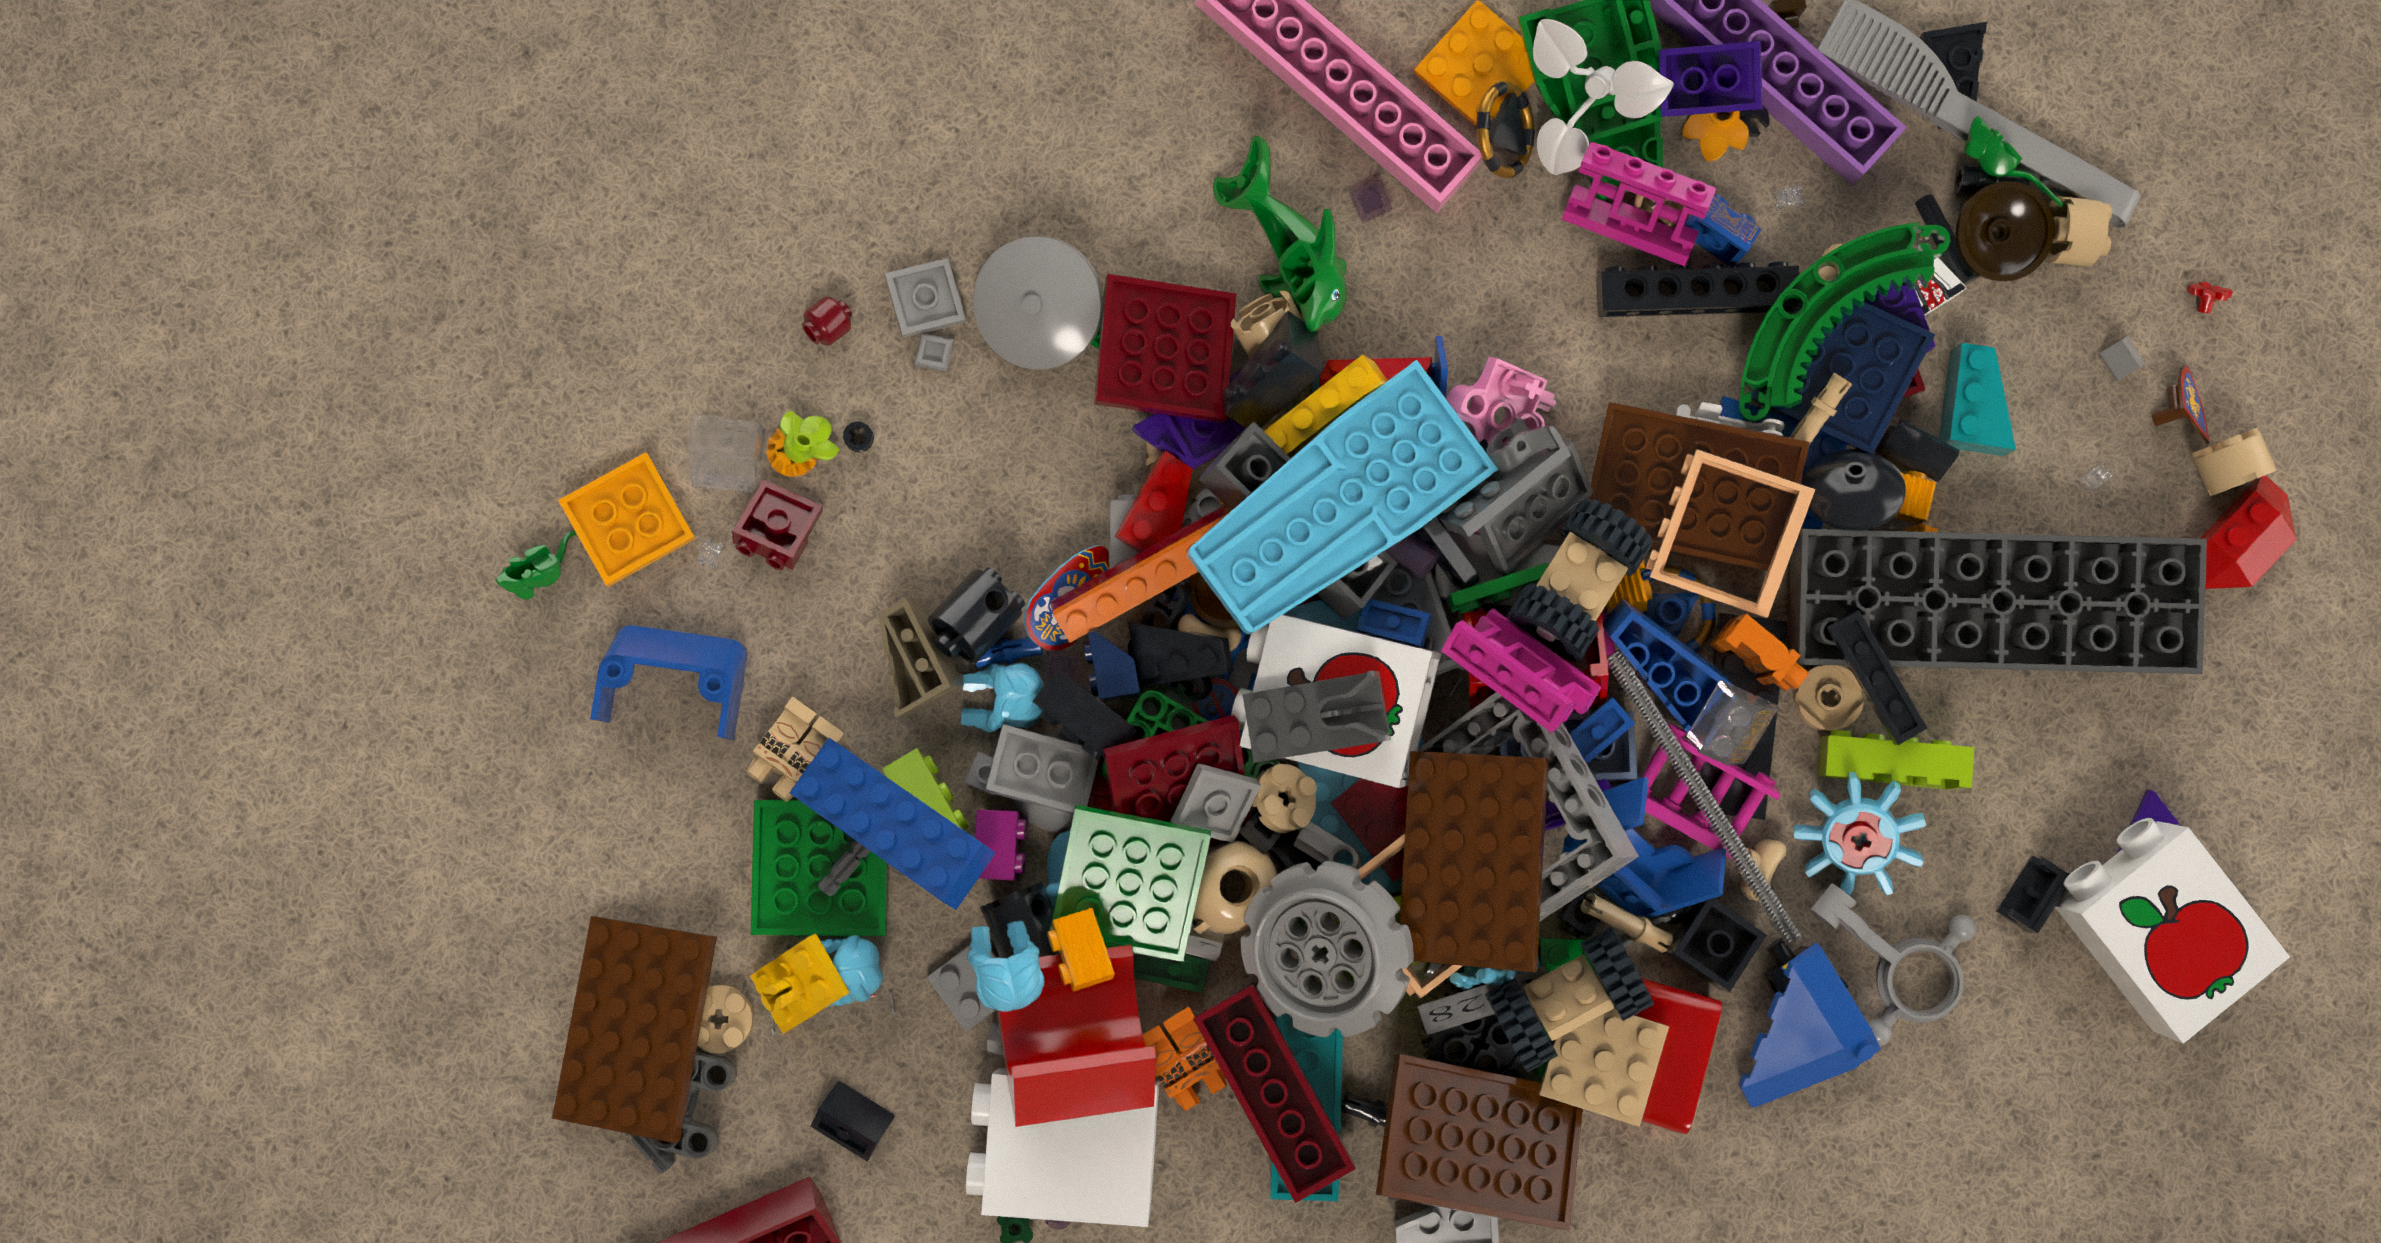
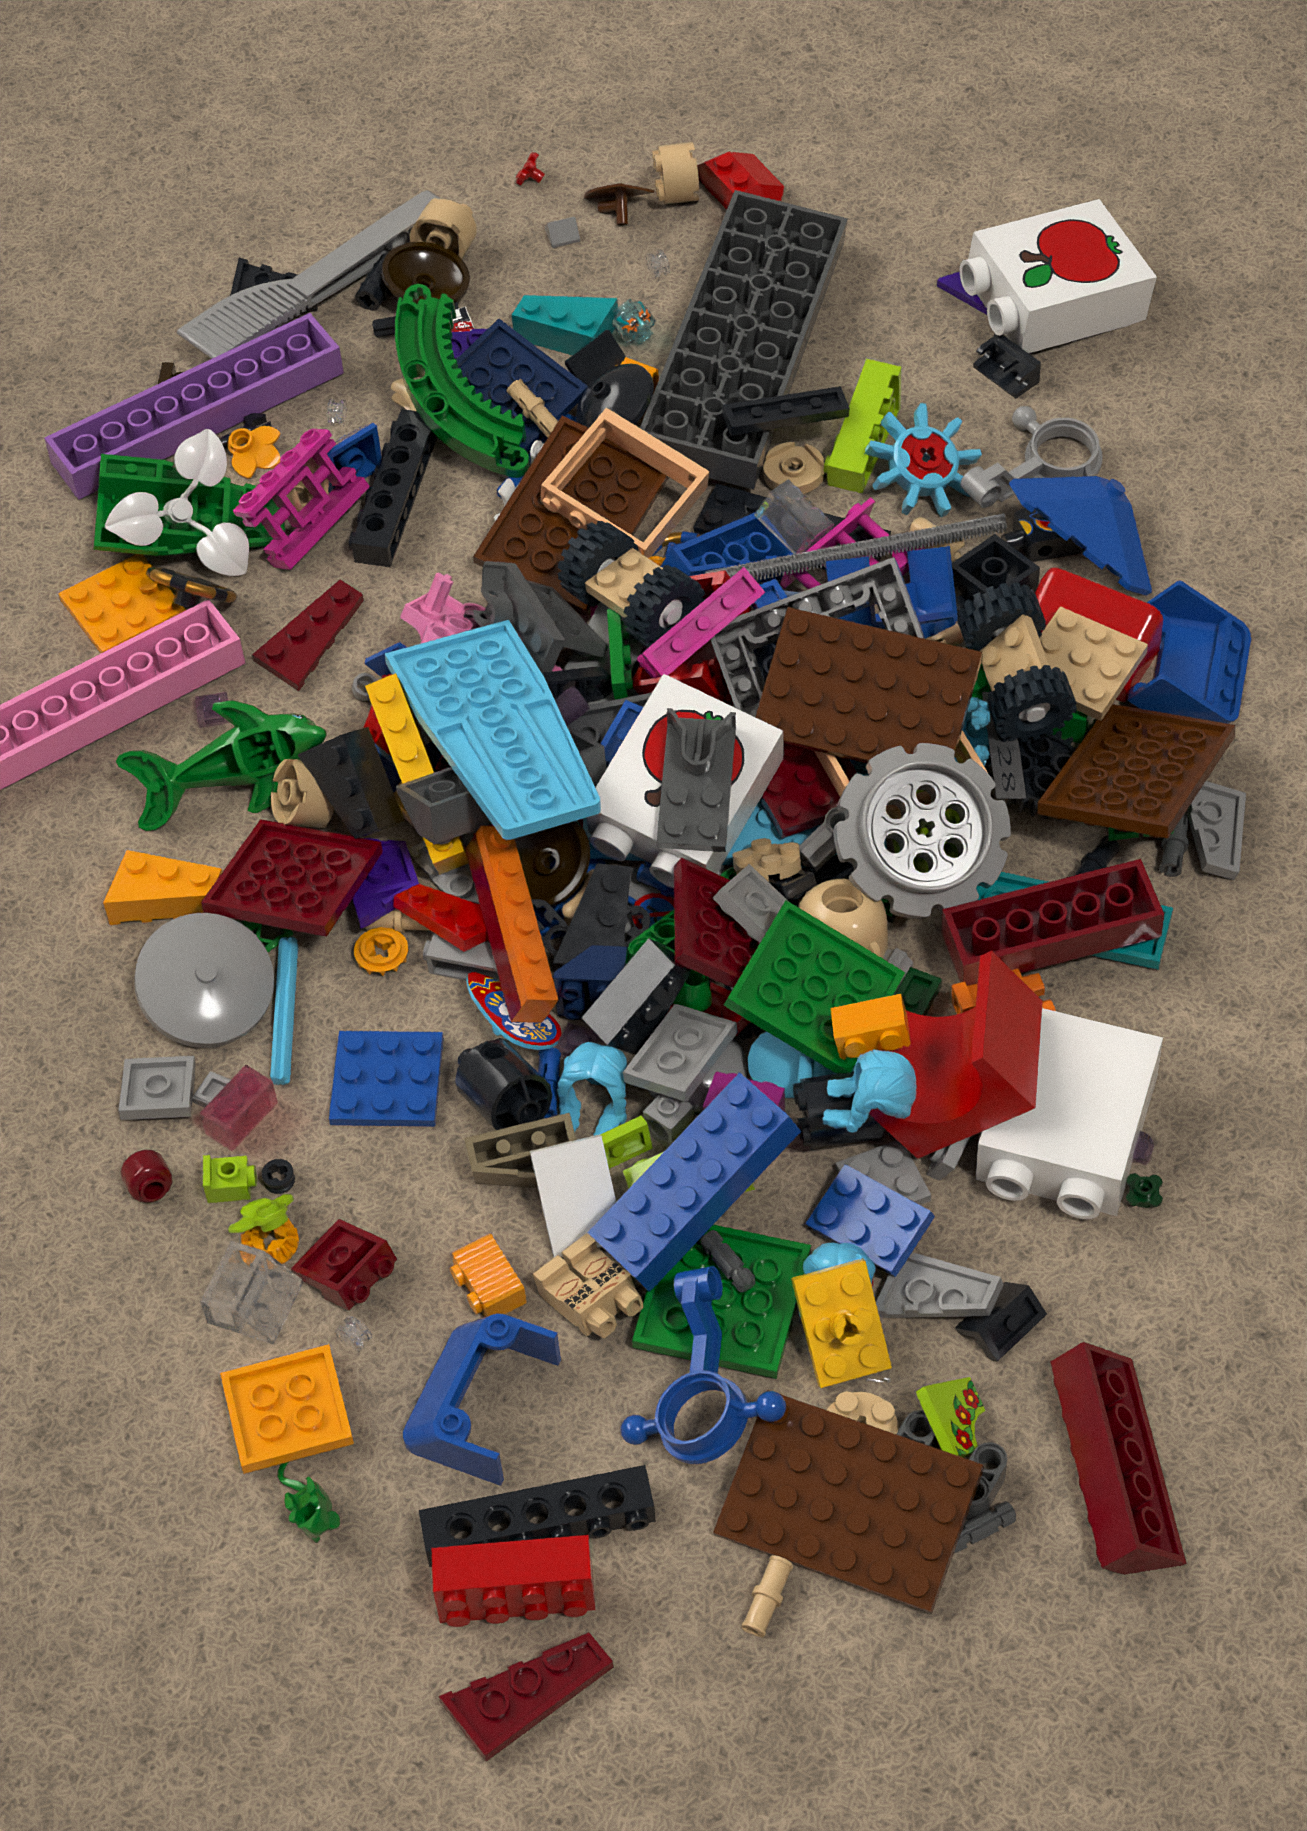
camera: 75 degrees left, 30 degrees down
(412, 794) = (511, 1703): none -> dark red wing
(495, 762) = (513, 1580): none -> red brick
(542, 976) = (767, 1596): none -> tan pin
(614, 834) = (551, 1501): none -> black brick
(734, 1099) = (952, 1414): none -> lime tile
(786, 854) = (695, 1293): none -> blue piece
(790, 655) = (487, 1277): none -> light orange brick
(848, 406) = (228, 1178): none -> lime brick
(864, 1056) = (937, 1290): none -> light grey wing
(877, 714) = (572, 1189): none -> white tile
(913, 379) = (238, 1107): none -> clear pink brick
(918, 984) = (872, 1218): none -> plate
(943, 722) = (626, 1141): none -> lime plate
(983, 501) = (386, 1078): none -> blue plate
(1027, 387) = (284, 1011): none -> medium azure axle
(1120, 438) = (385, 939): none -> light orange gear
(1136, 224) = (157, 888): none -> light orange wedge
(1421, 340) = (362, 680): none -> light grey hinge
(1484, 264) = (303, 641): none -> dark red wing
(1661, 1172) = (1198, 659): none -> blue windscreen
(1712, 78) = (214, 407): dark purple slope -> none
(1761, 652) = (737, 488): orange hips -> none
(1995, 474) = (633, 322): none -> clear light blue head
(1997, 156) = (359, 260): green animal -> none

